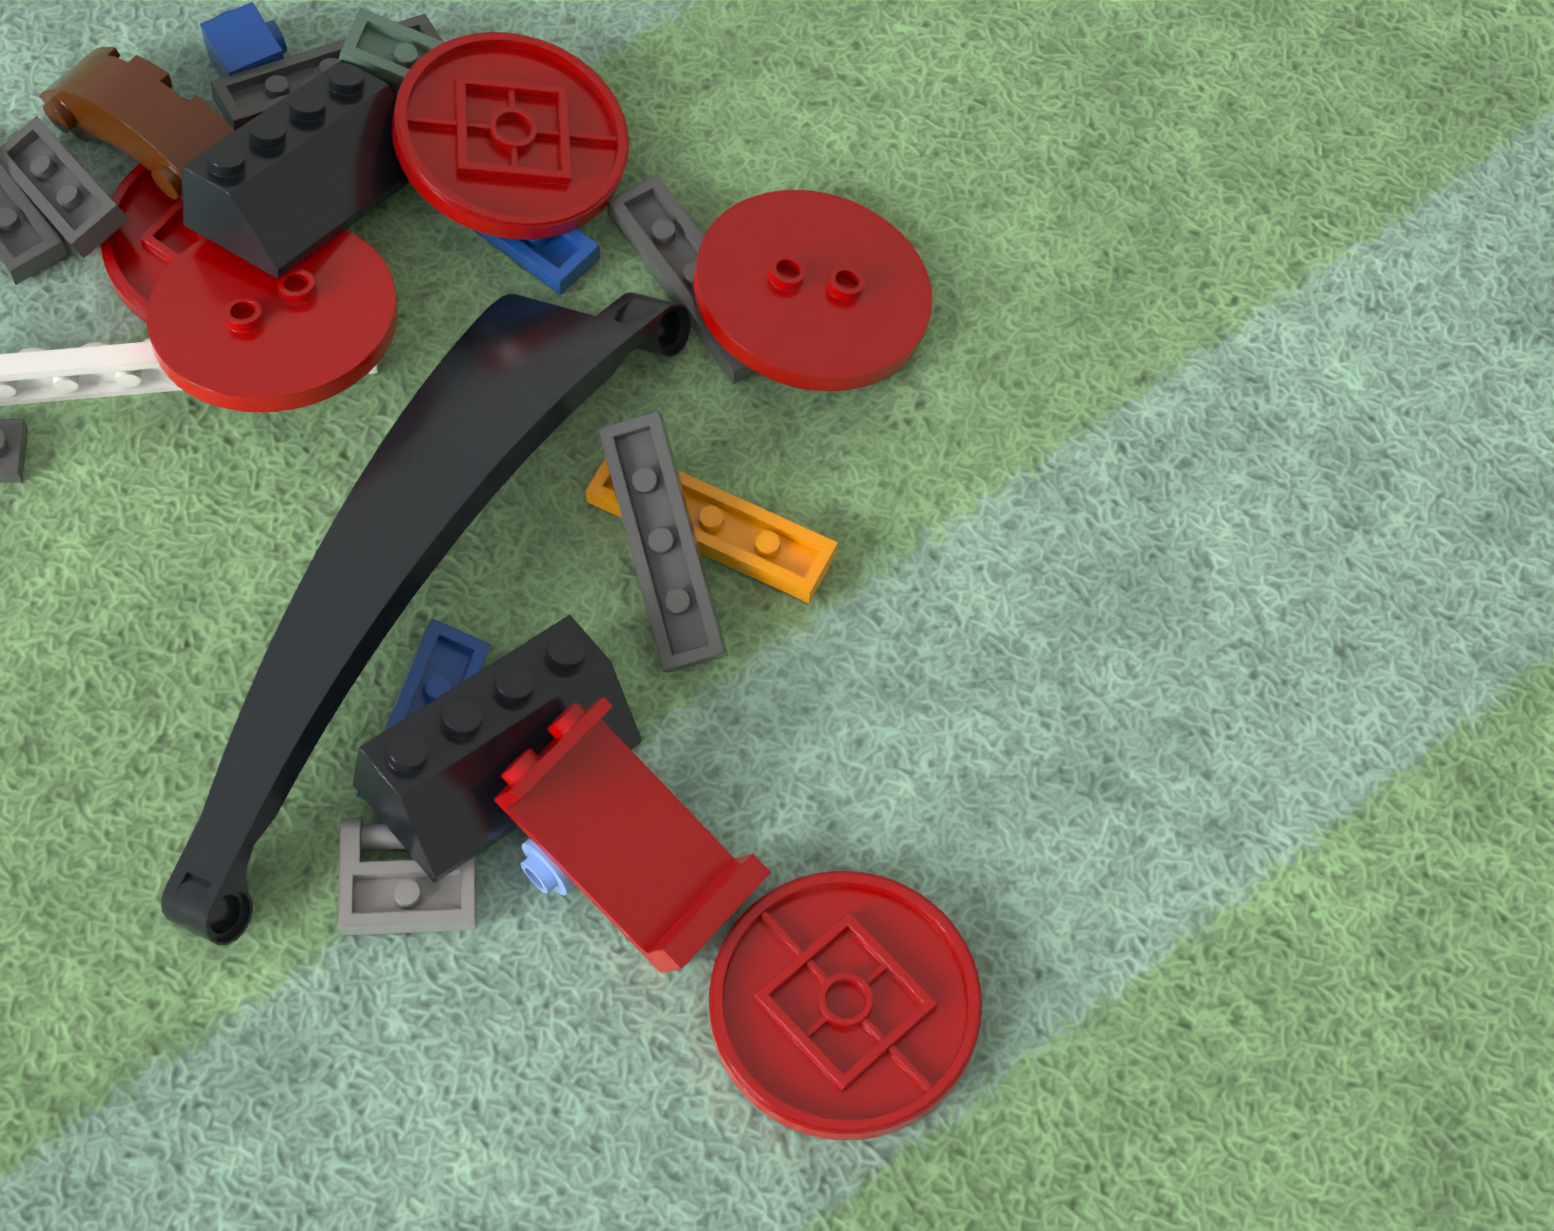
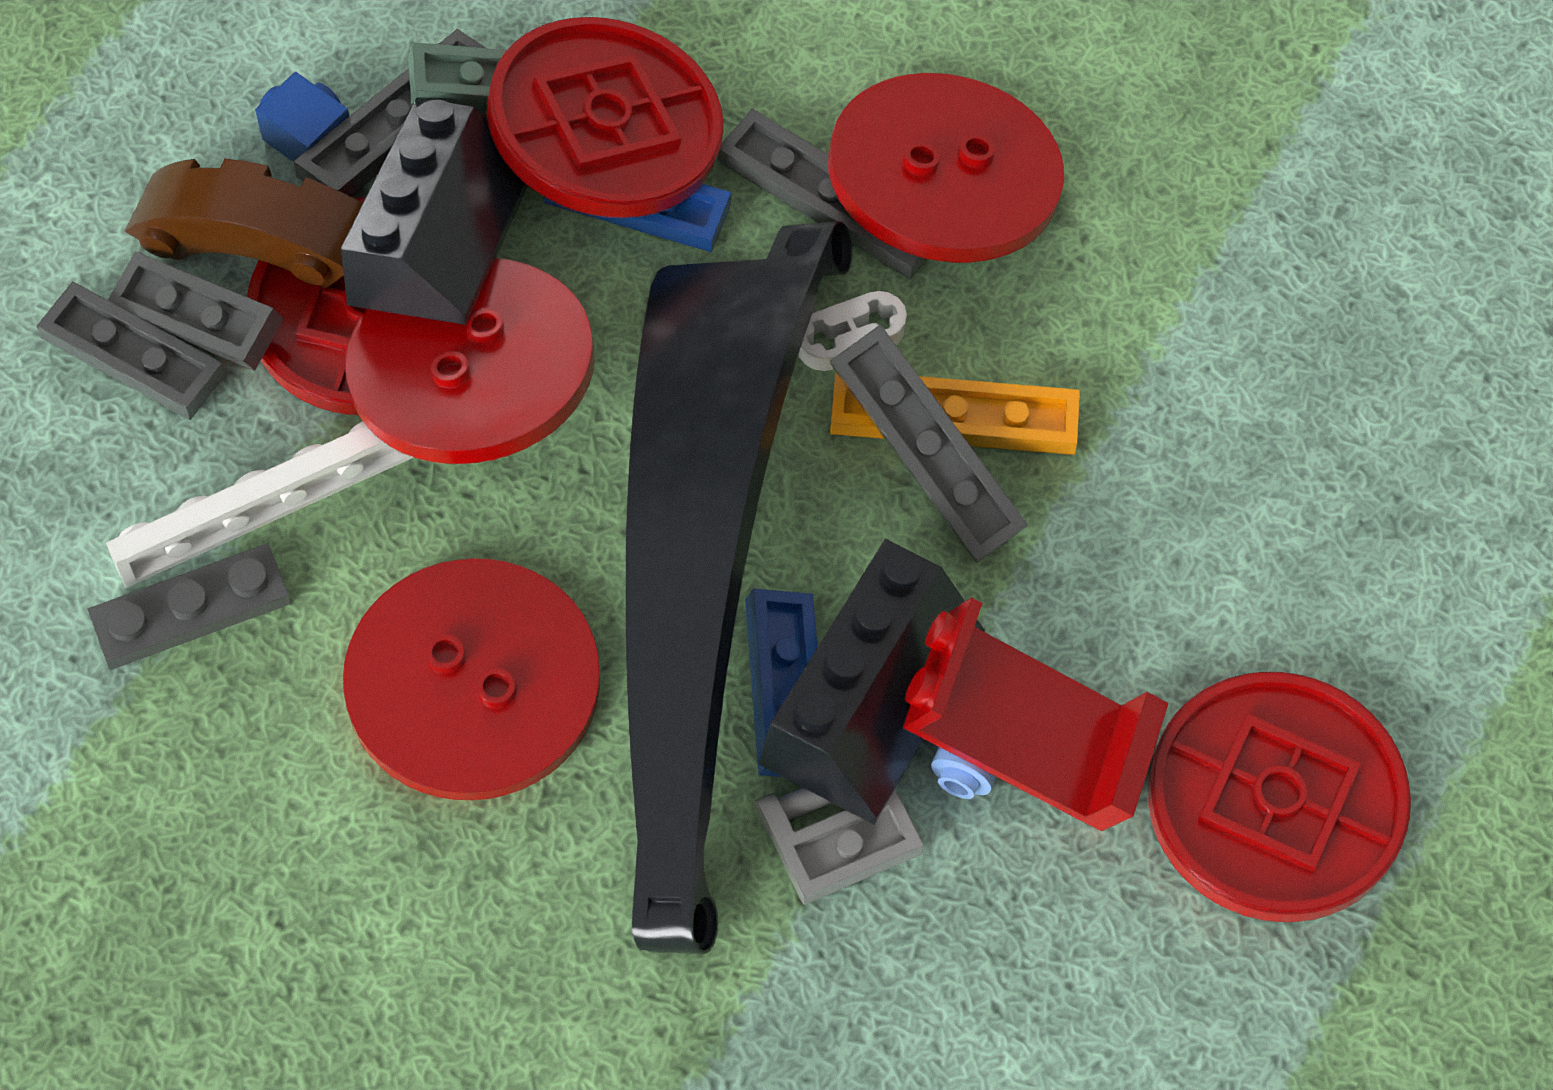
camera: 20 degrees left, 0 degrees up
(144, 610) = (471, 679): none -> red plate
(661, 397) = (849, 323): none -> white beam

